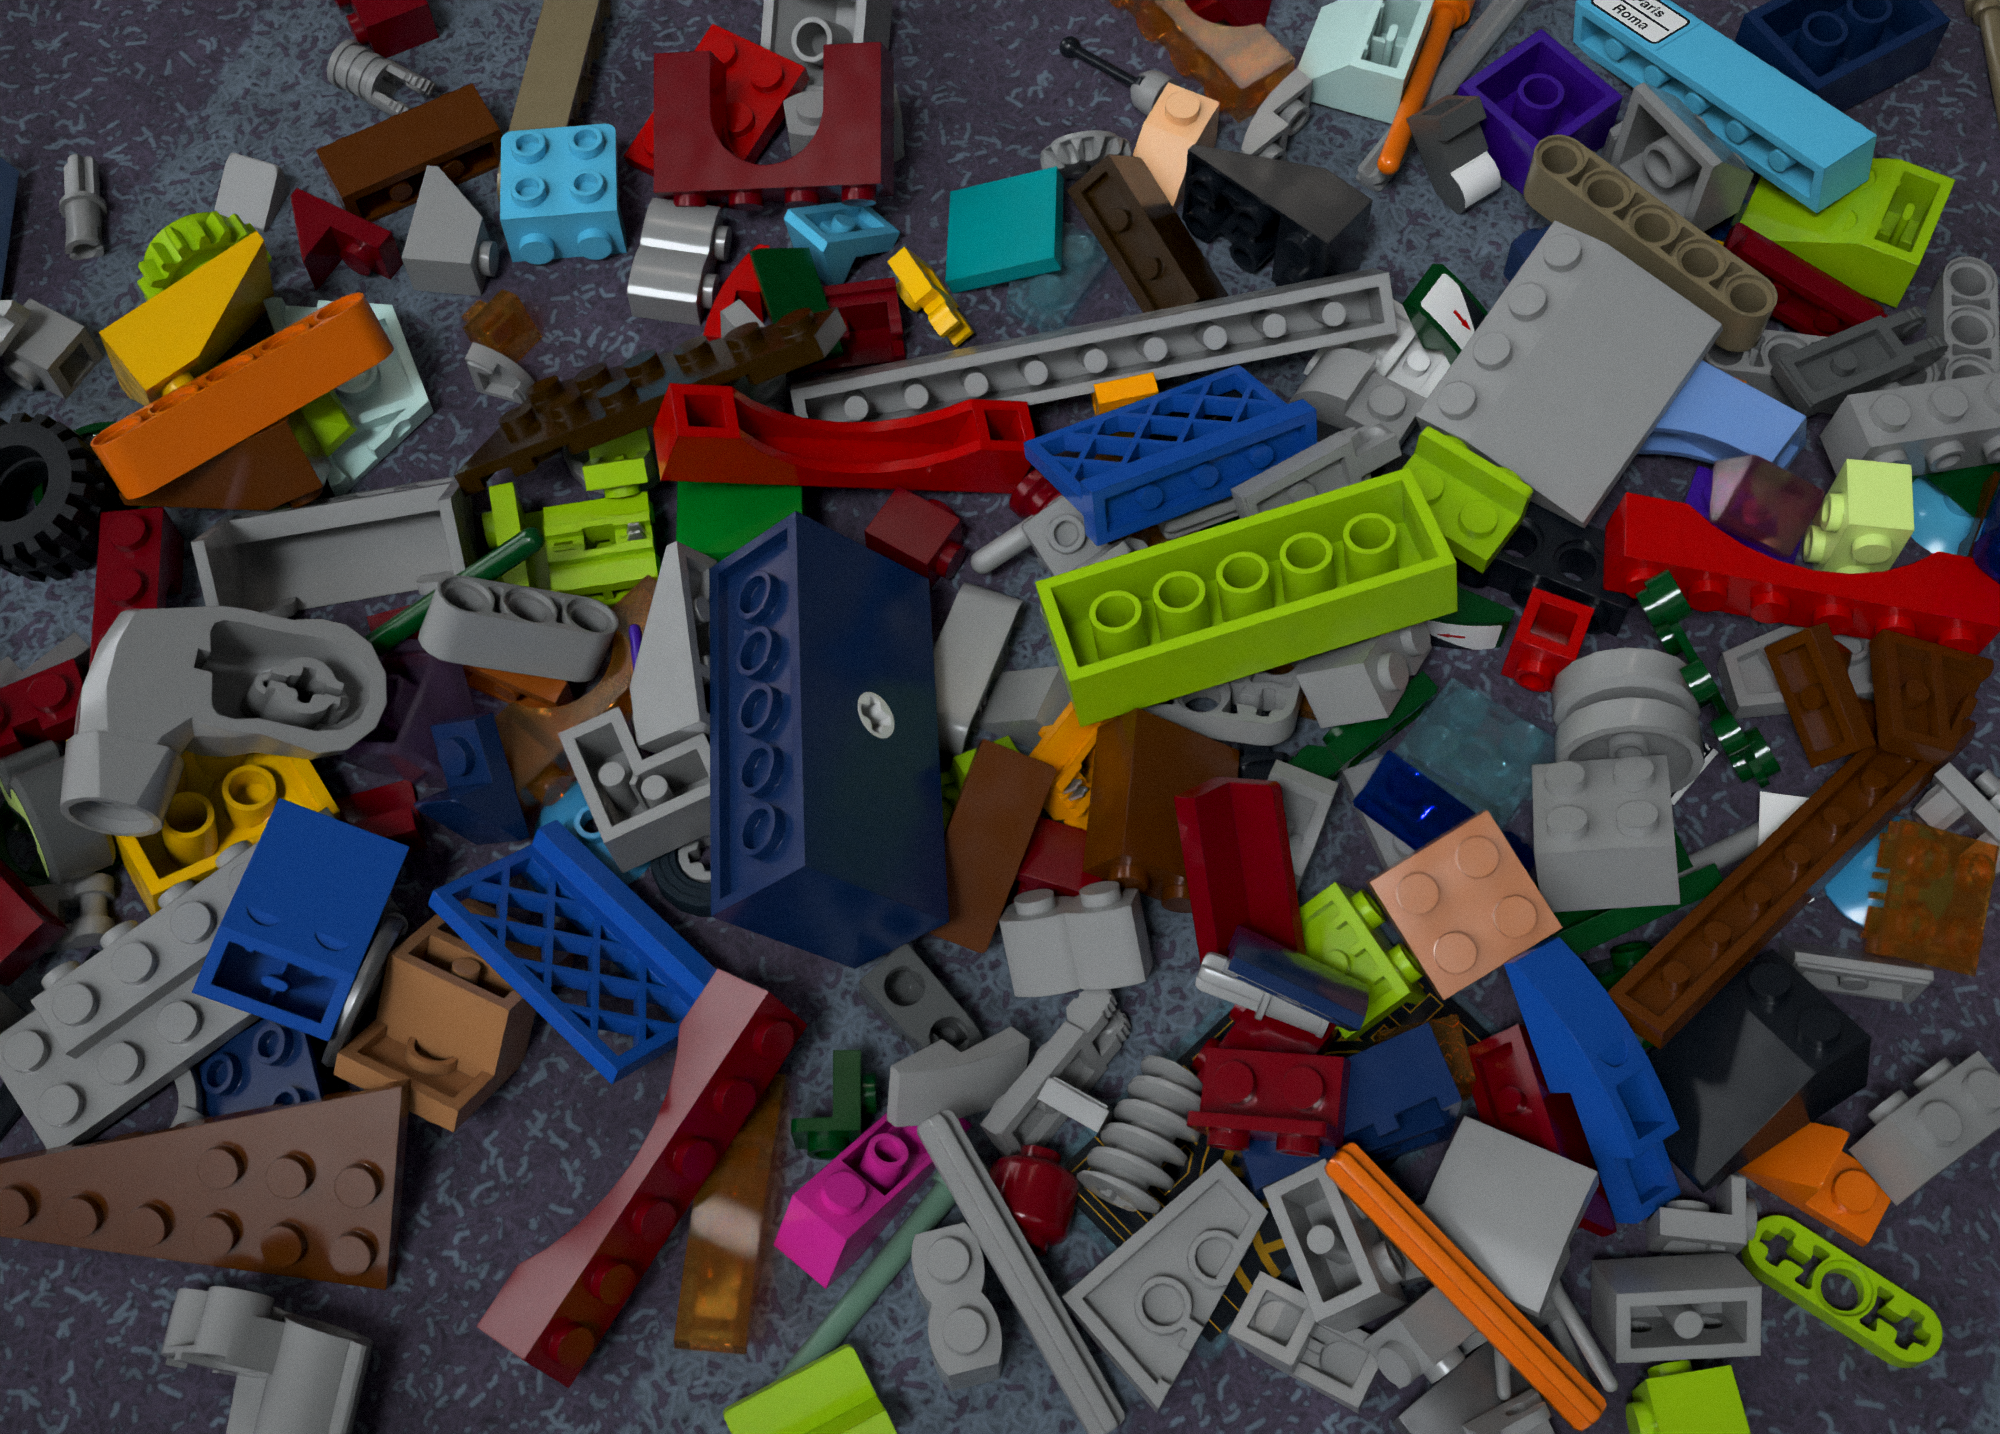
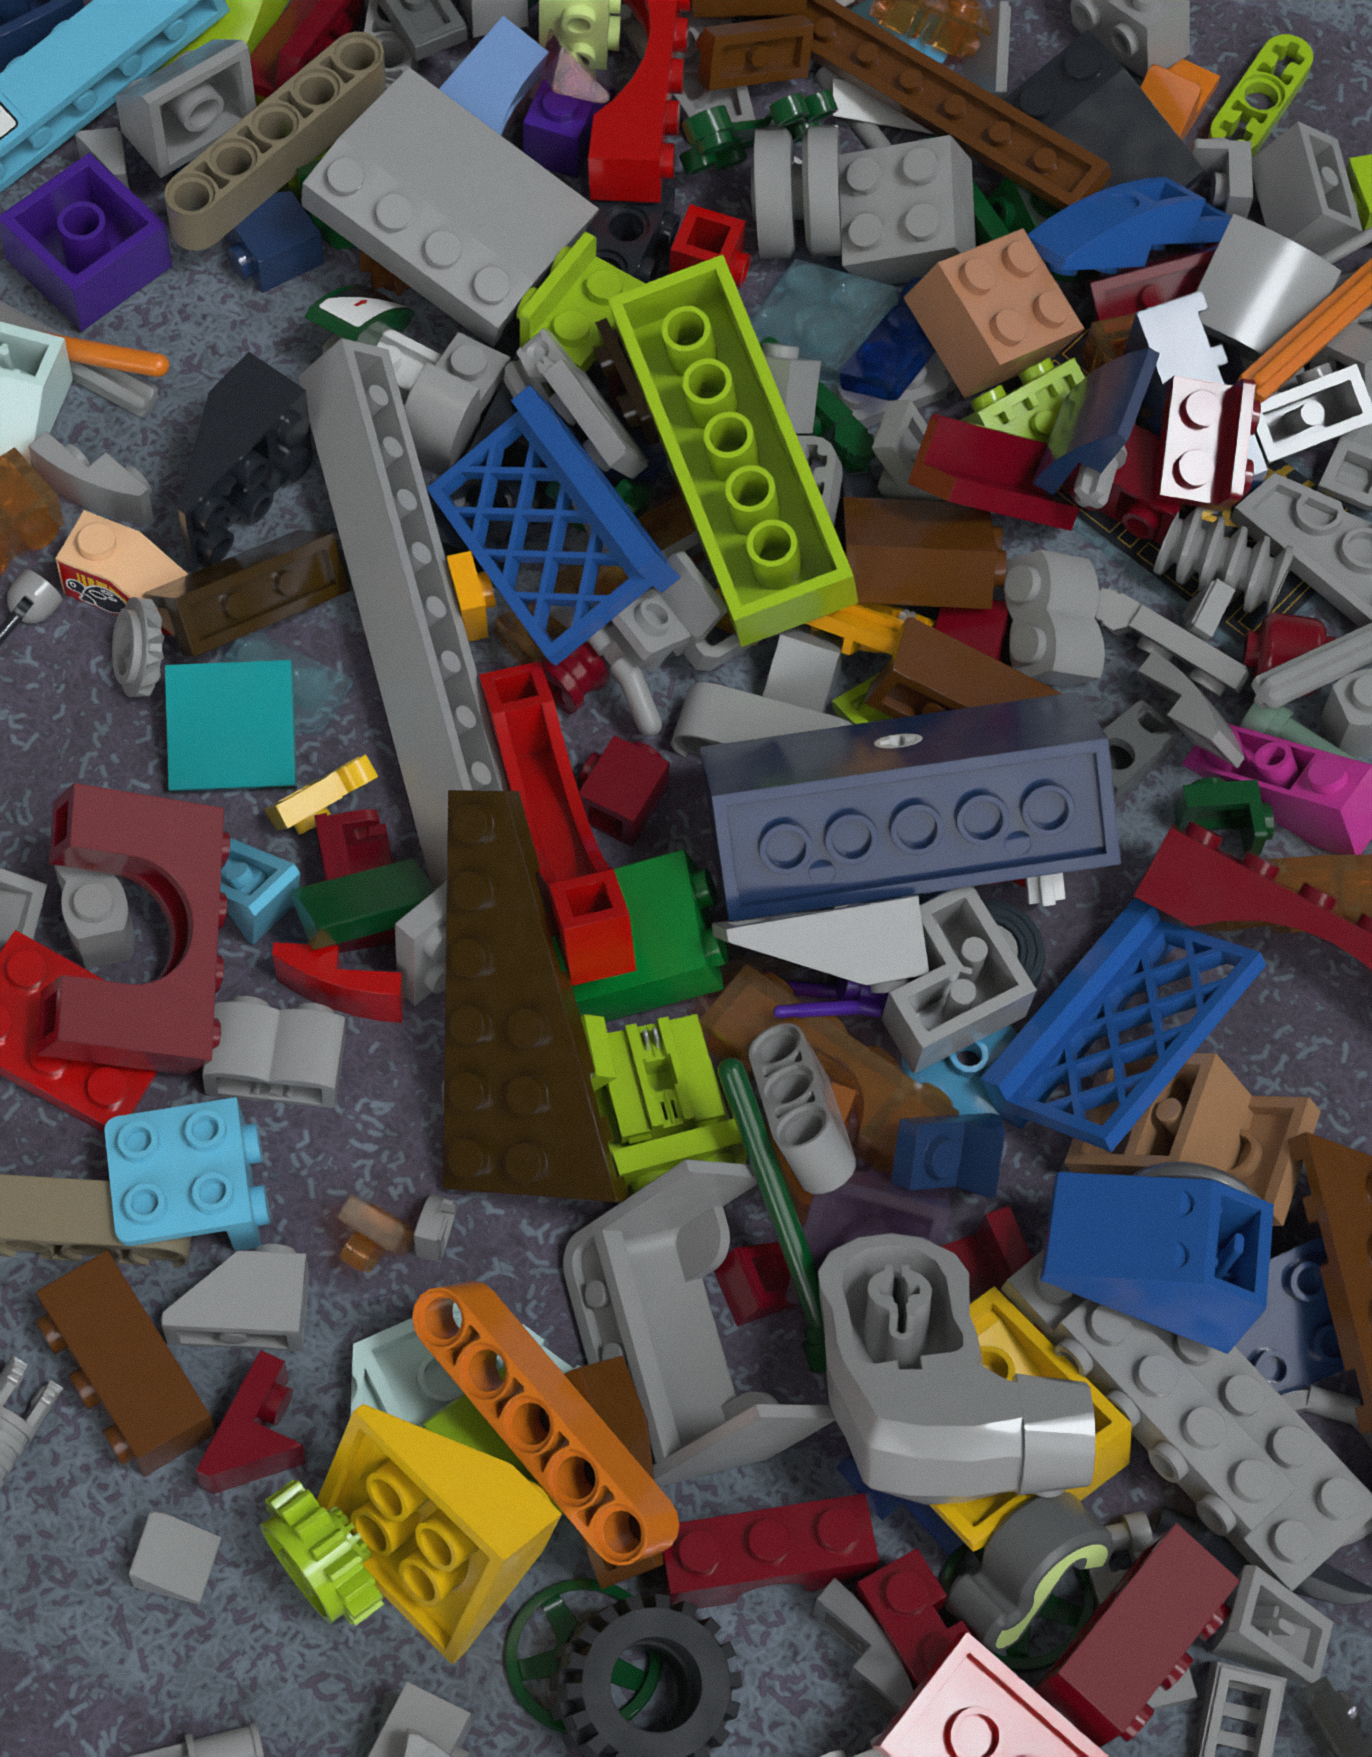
camera: 100 degrees left, 0 degrees up
(1456, 151) = (140, 312): dark grey leg -> none

